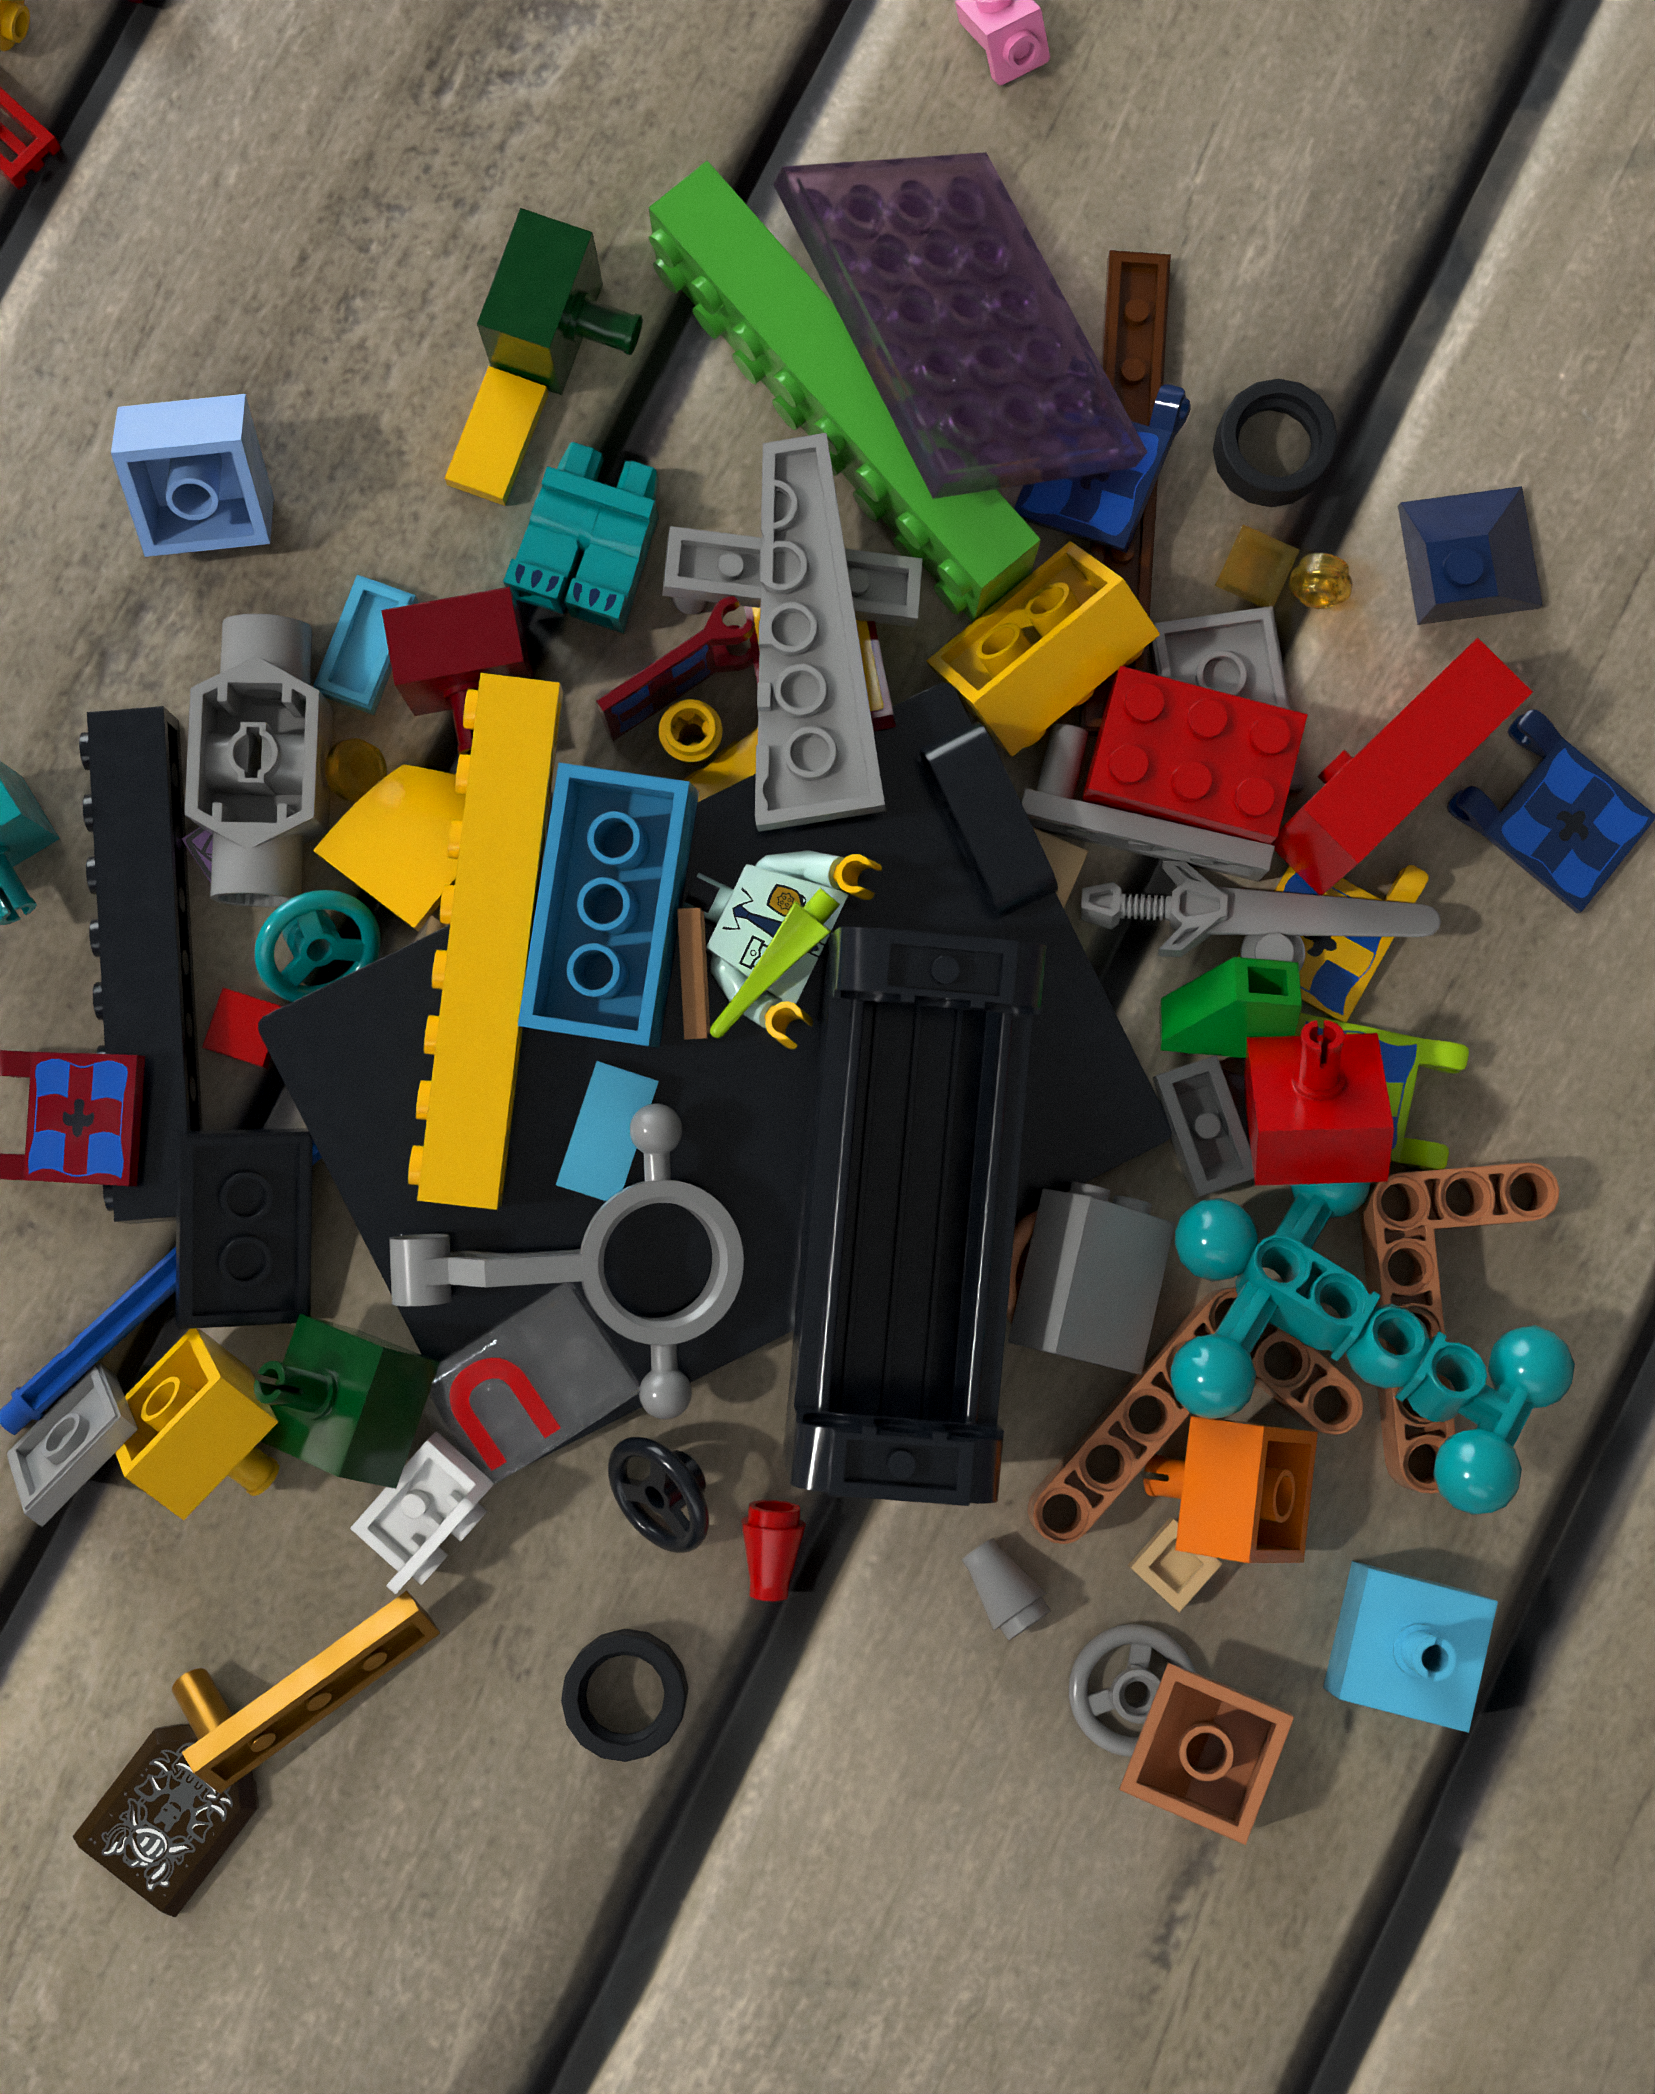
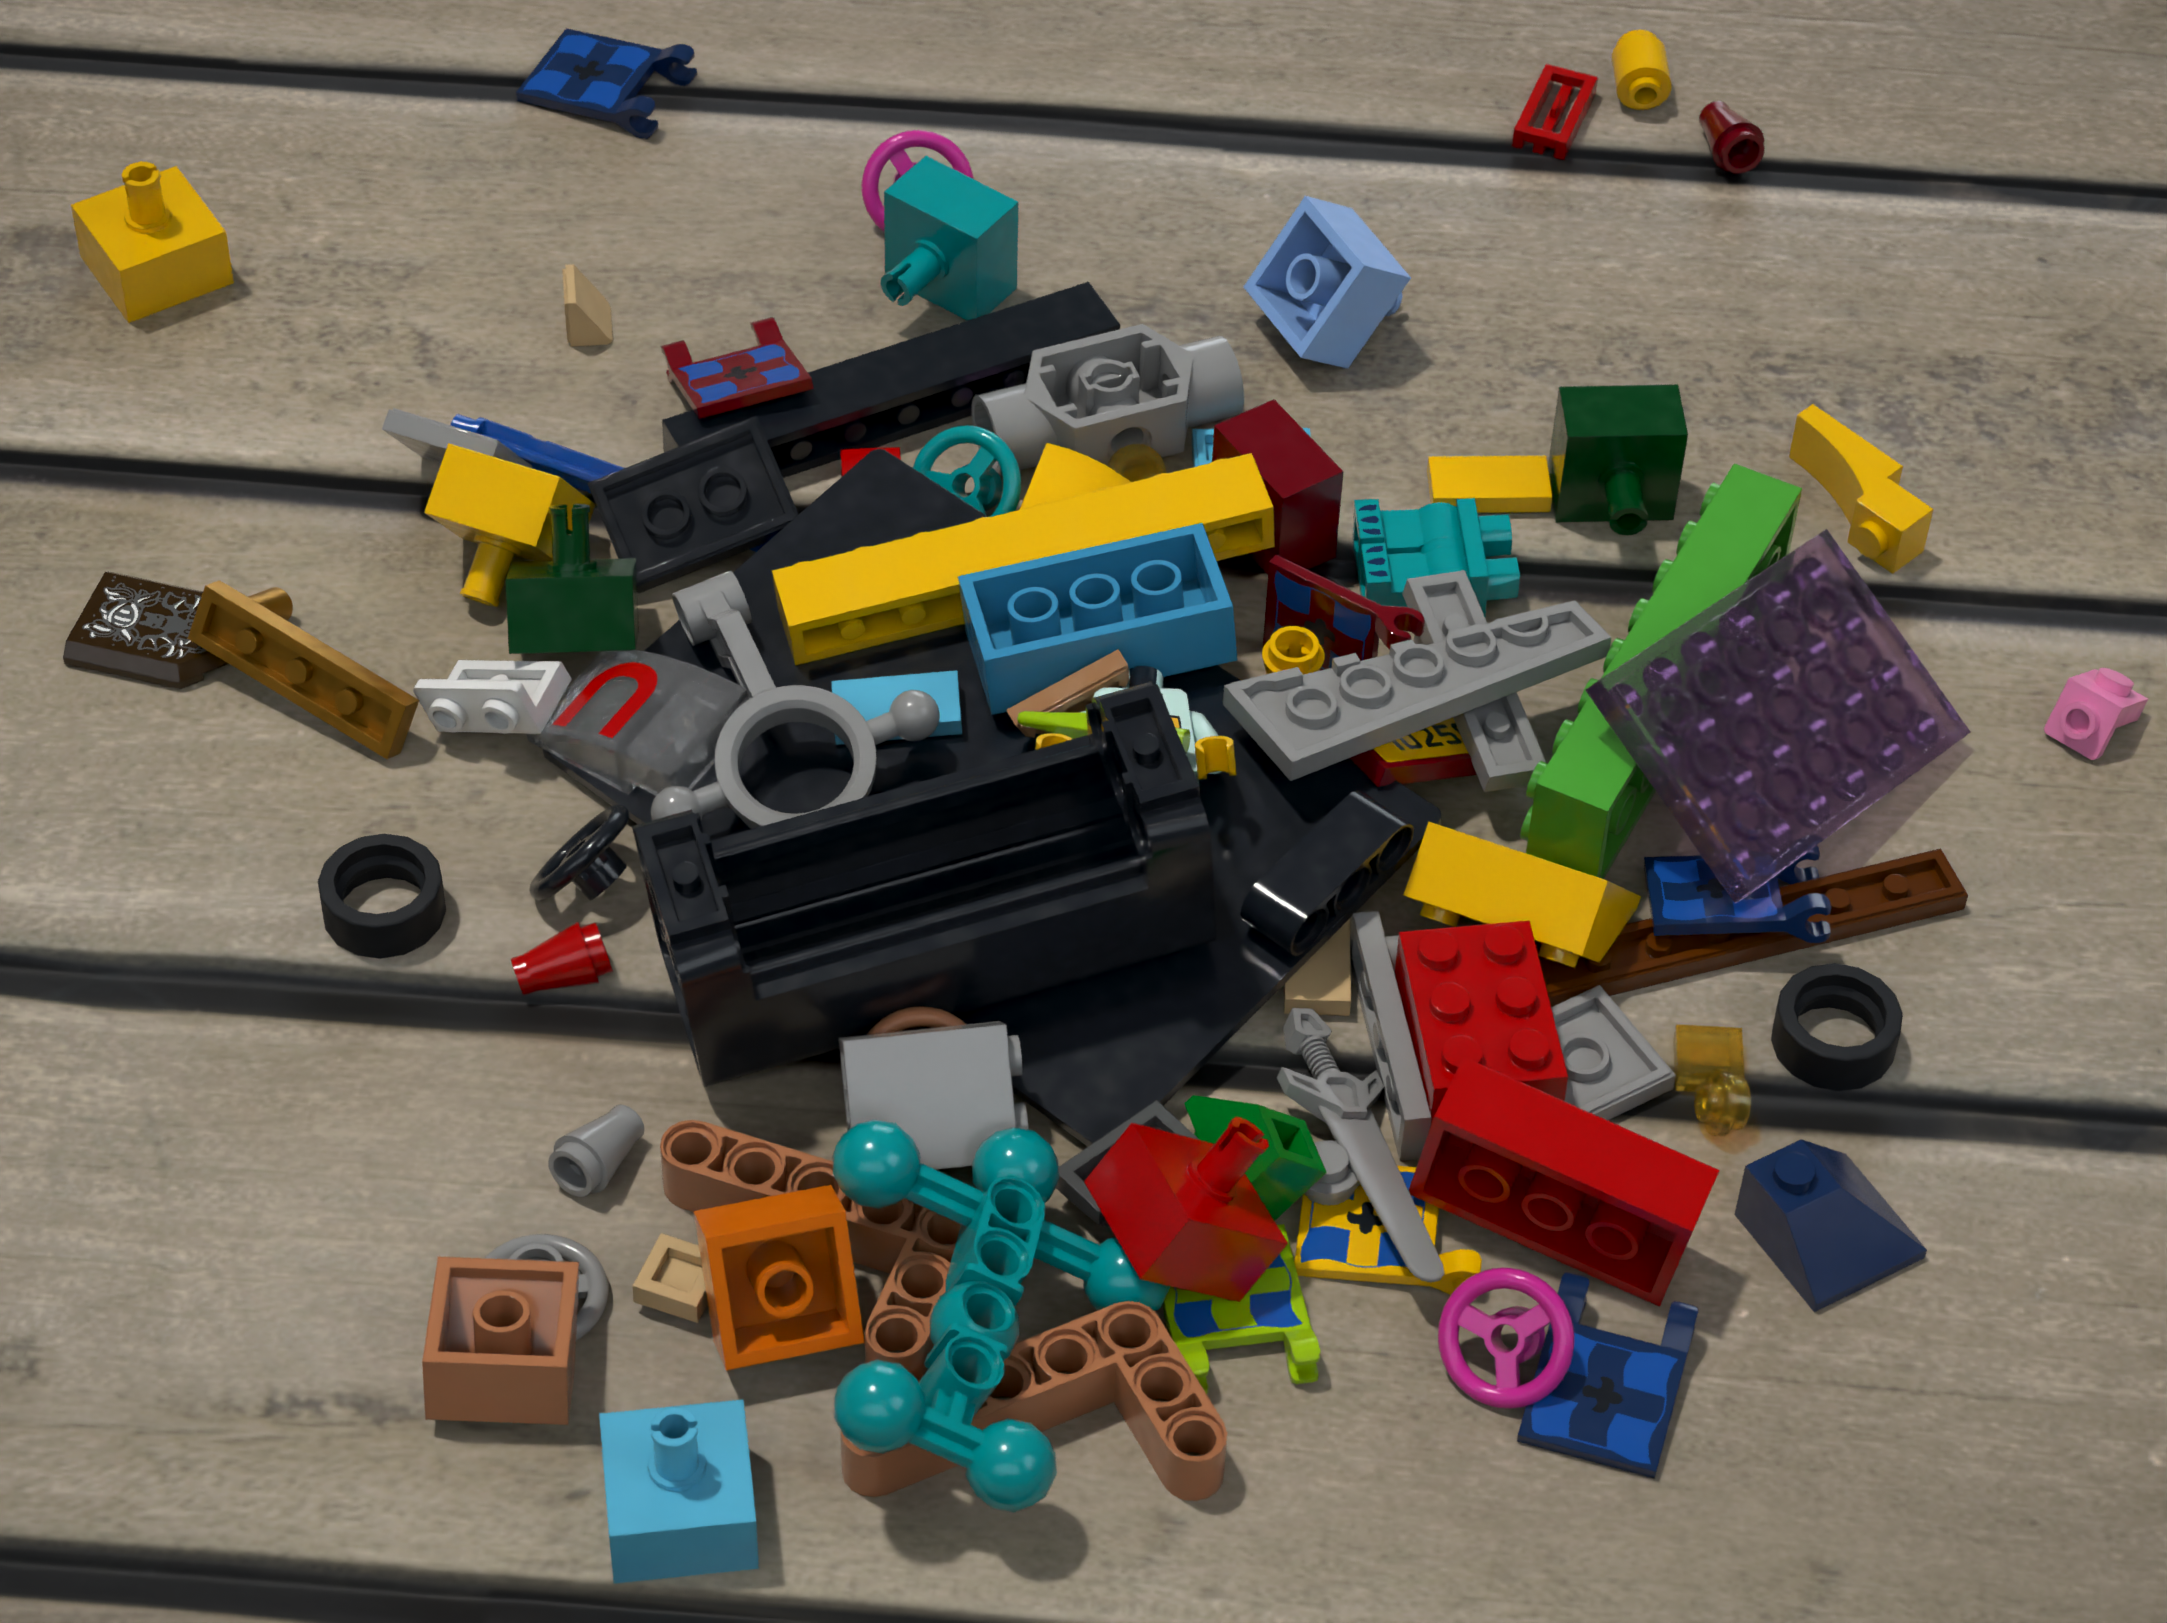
camera: 70 degrees right, 35 degrees down
(647, 87) = (1864, 481): none -> yellow slope
(1503, 877) = (1530, 1331): none -> dark pink piece

